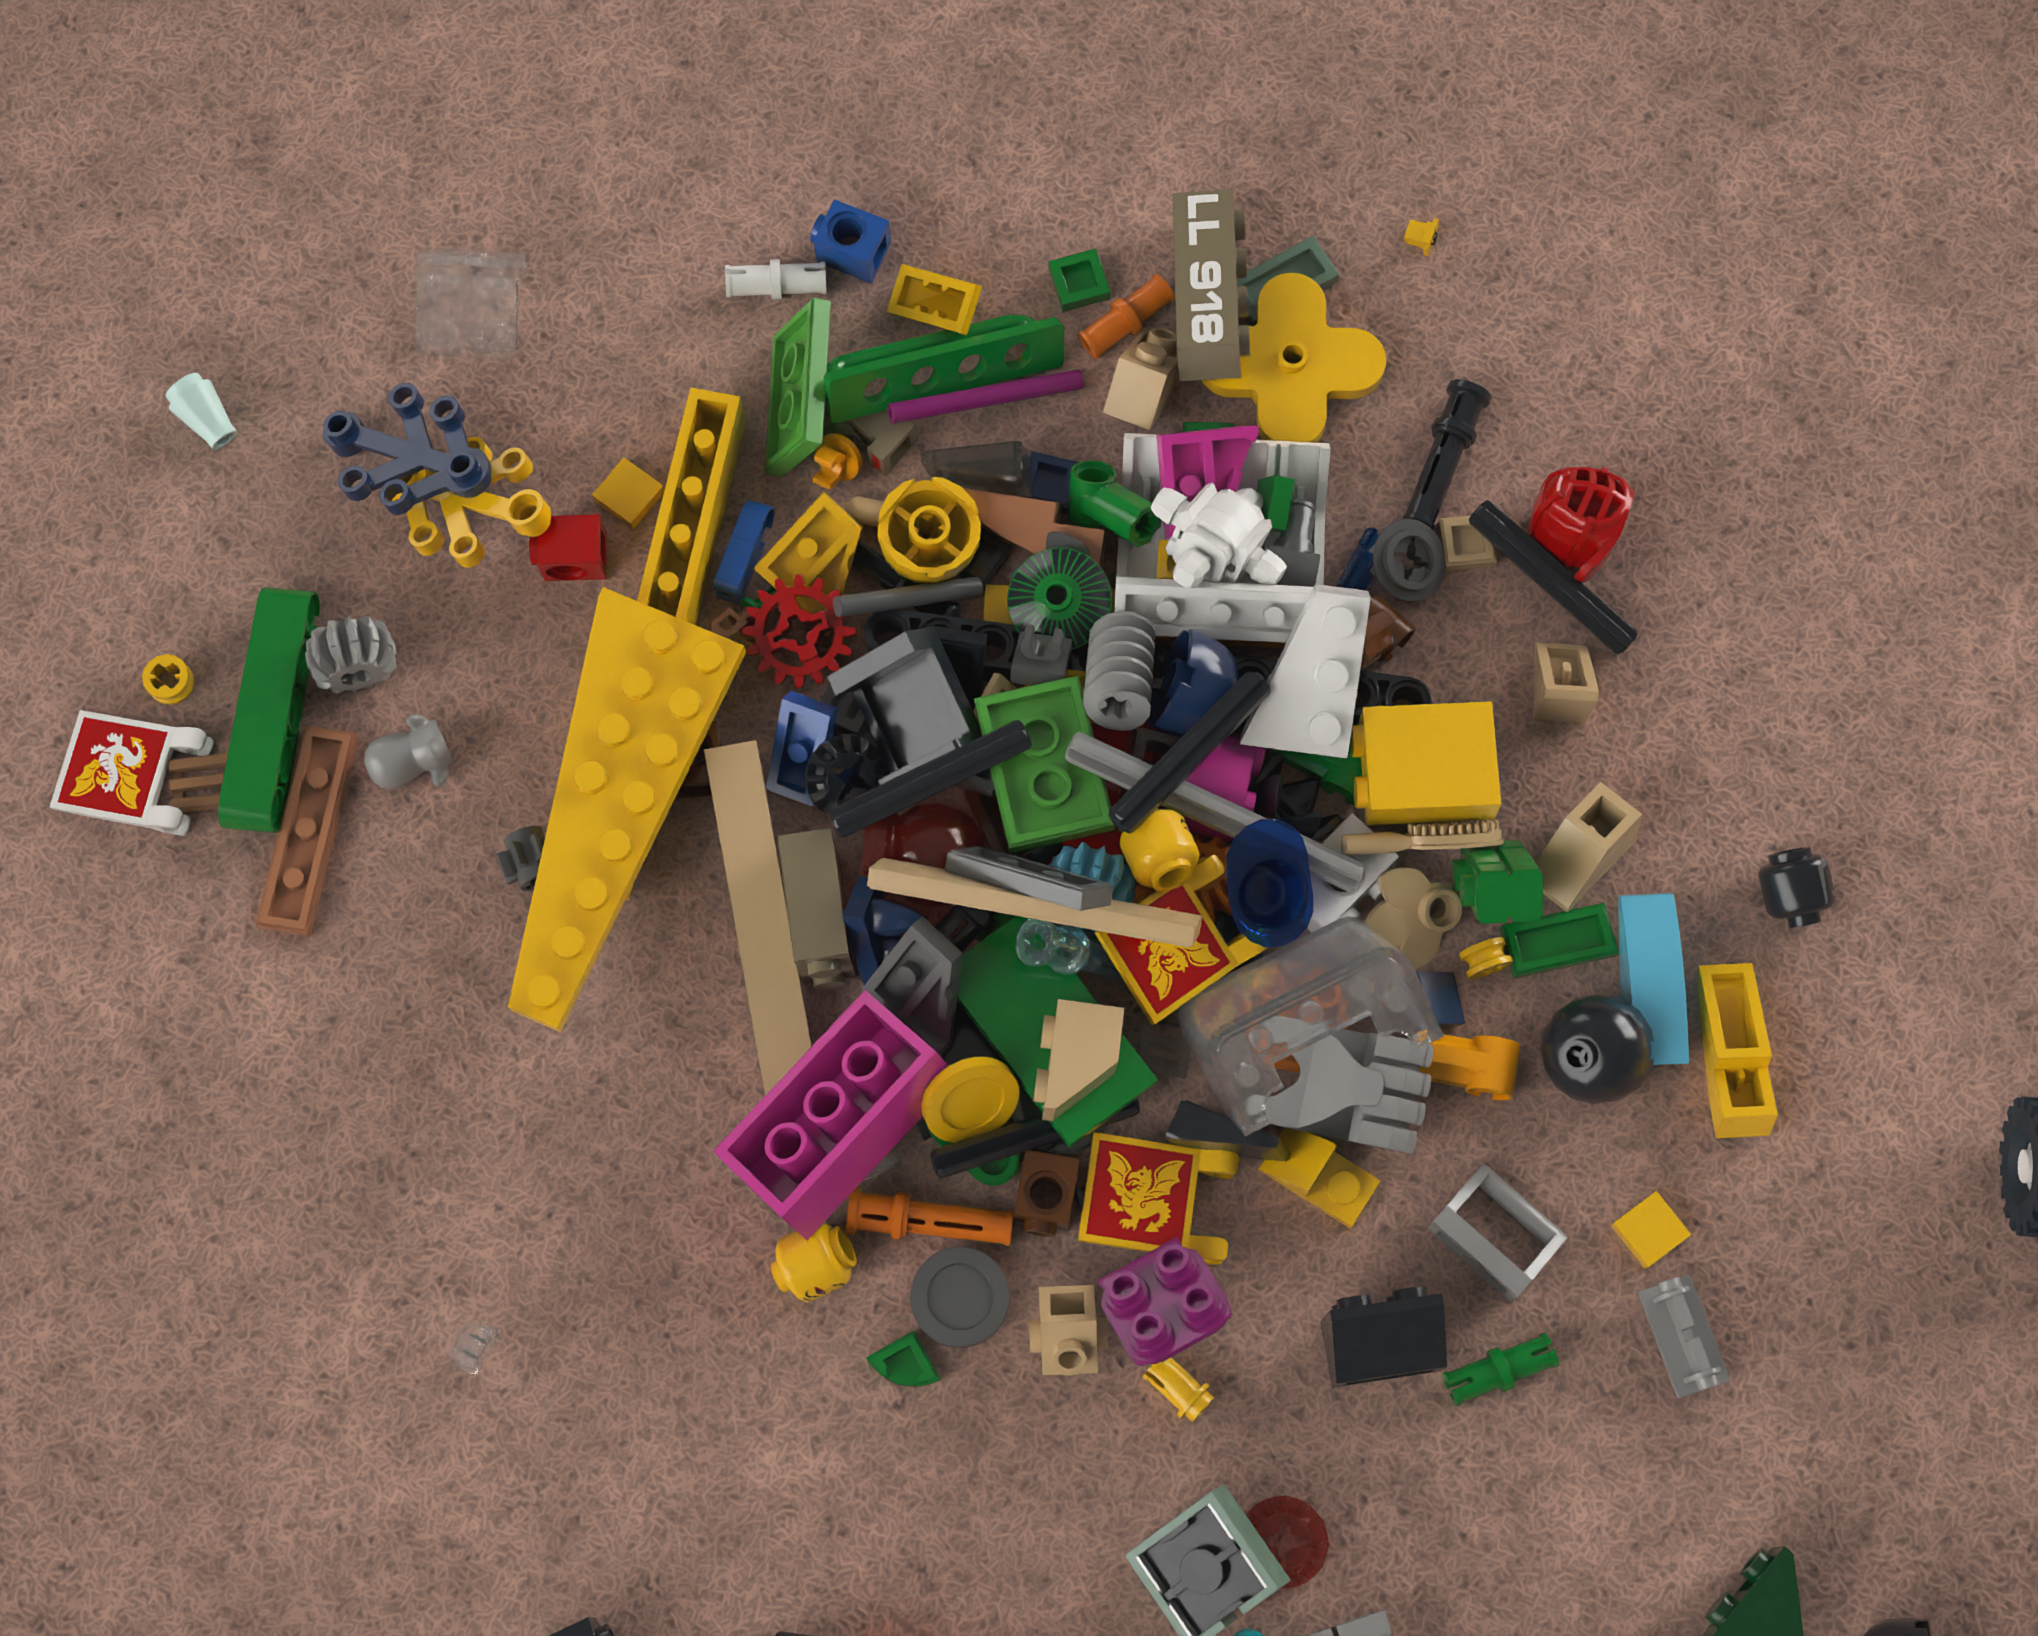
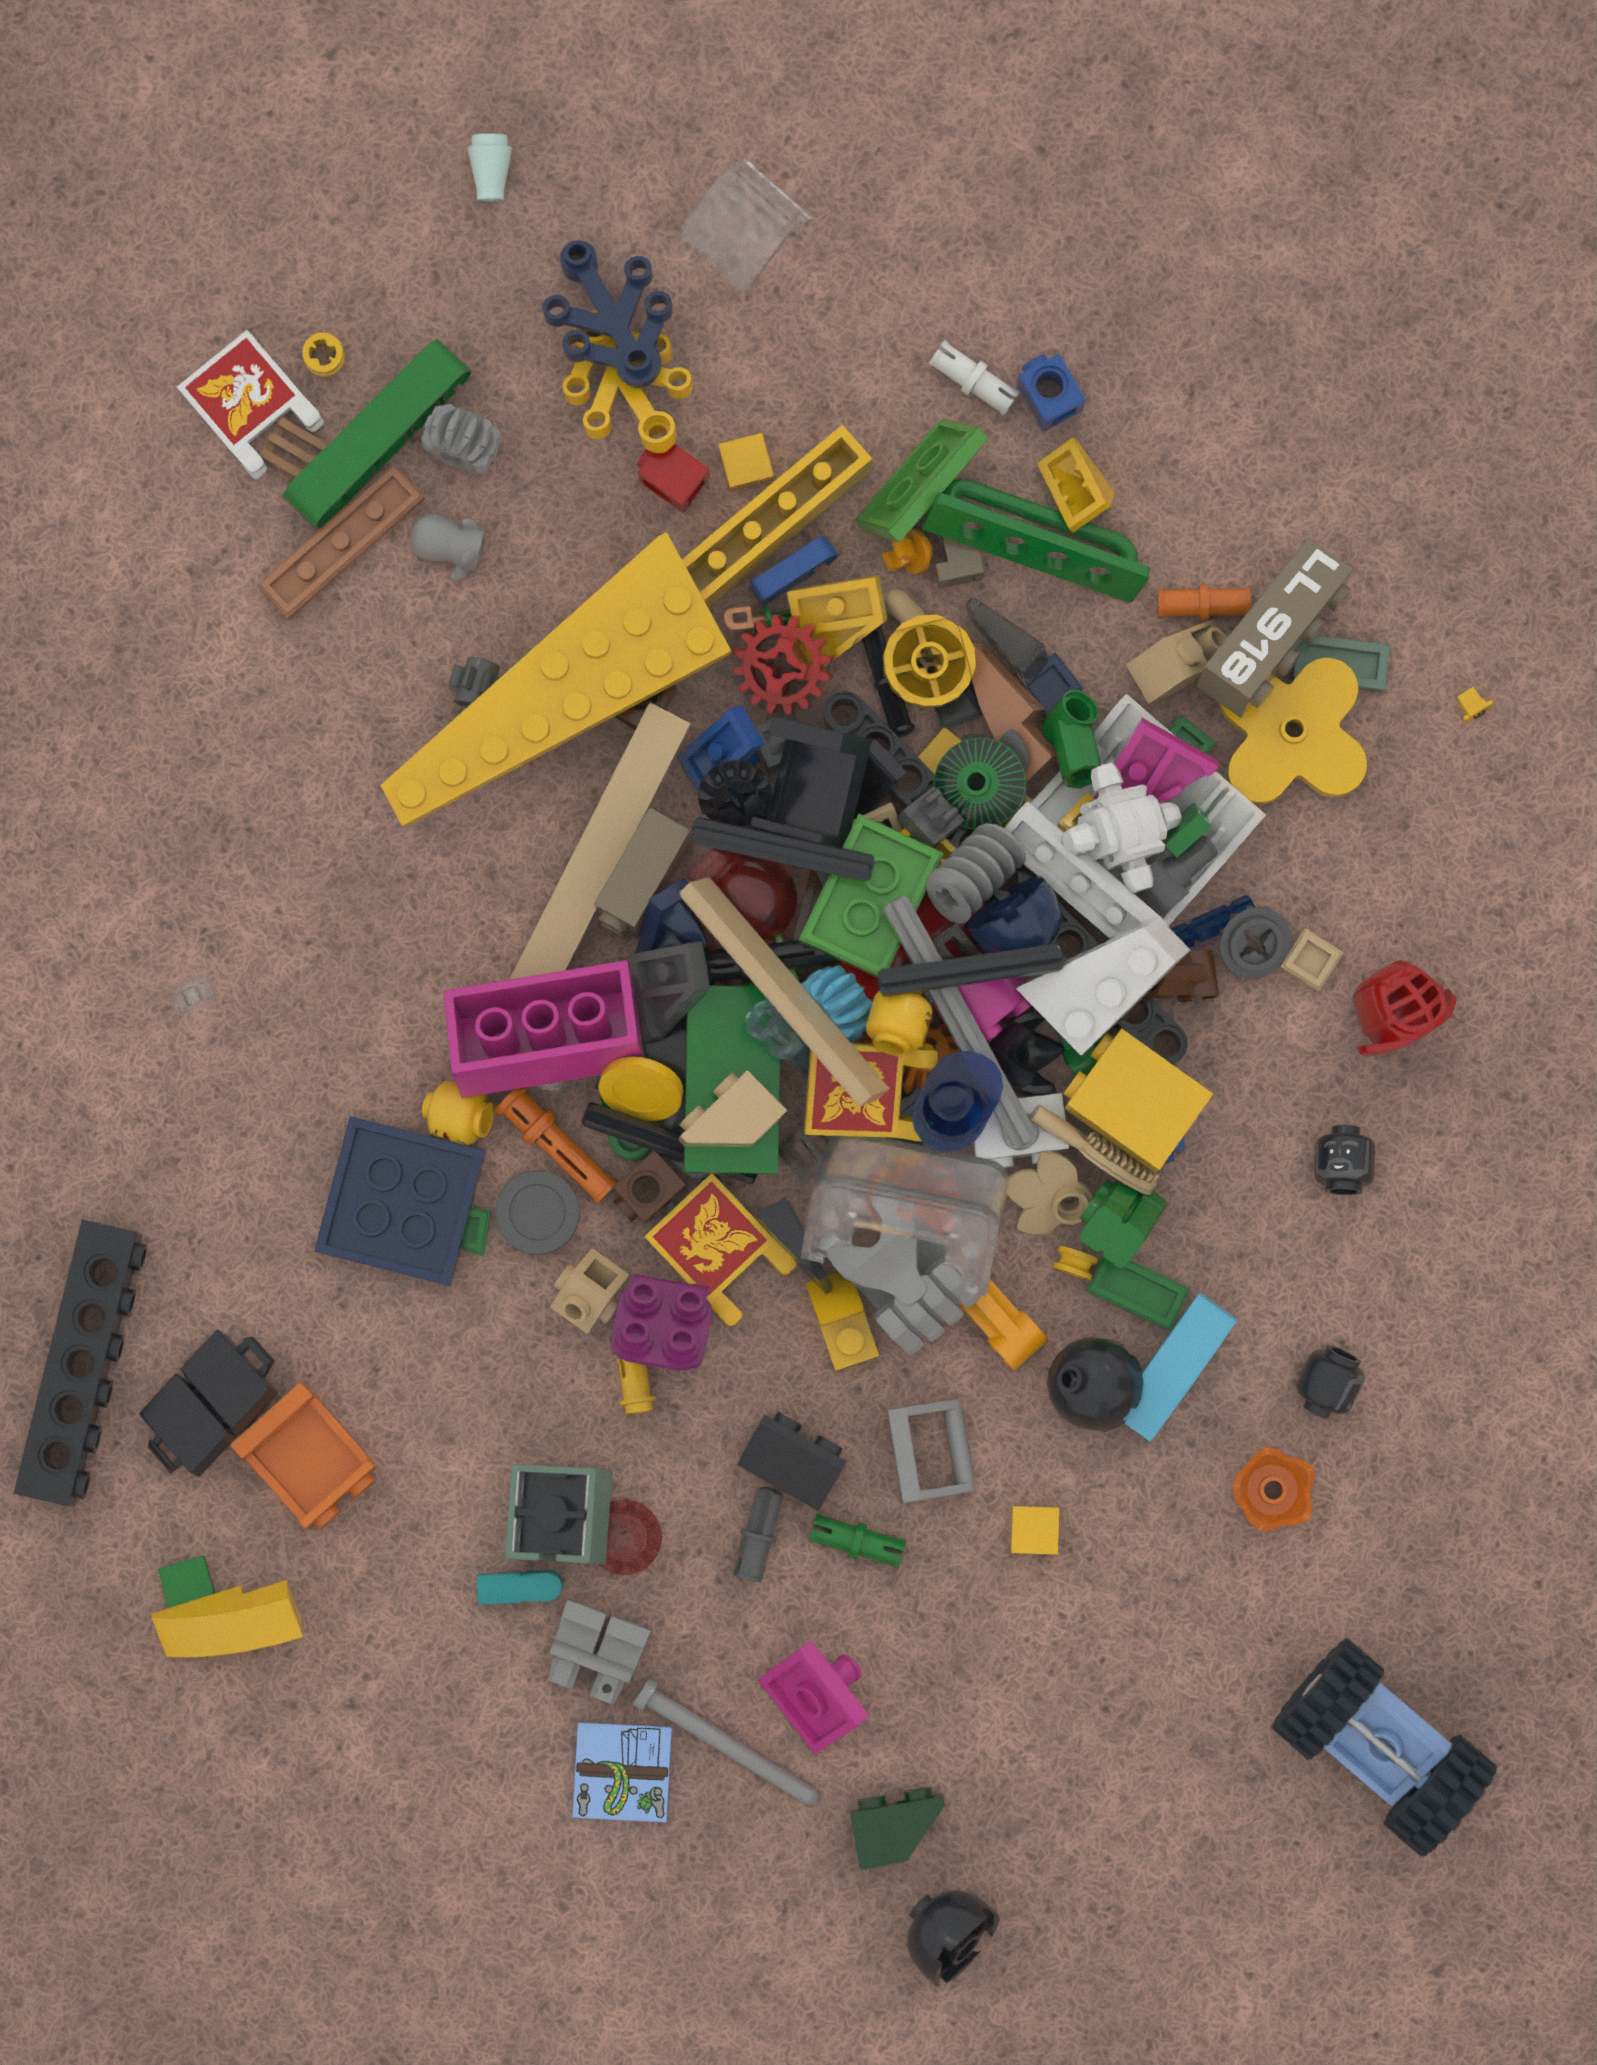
camera: 35 degrees right, 10 degrees up
(821, 1388) = (400, 1201): none -> dark blue plate
(907, 596) = (877, 698): dark grey bar -> none
(985, 396) = (1052, 587): magenta piece -> none
(1029, 878) = (792, 972): dark grey tile -> none
(1079, 280) = (1194, 547): green tile -> none
(1407, 1438) = (758, 1534): none -> dark grey axle
(1443, 997) = (1016, 1264): dark blue tile -> none
(1452, 435) = (1365, 874): black pin -> none
(1552, 577) = (1347, 1033): black axle -> none
(1563, 683) = (1293, 1112): tan slope -> none
(1587, 845) = (1204, 1241): tan slope -> none
(1588, 1547) = (816, 1695): none -> dark pink tile
(1644, 685) = (1344, 1160): none -> black head
(1683, 1336) = (997, 1615): light grey hinge -> none
(1735, 1051) = (1193, 1457): yellow slope -> none
(1842, 998) = (1294, 1501): none -> orange piece

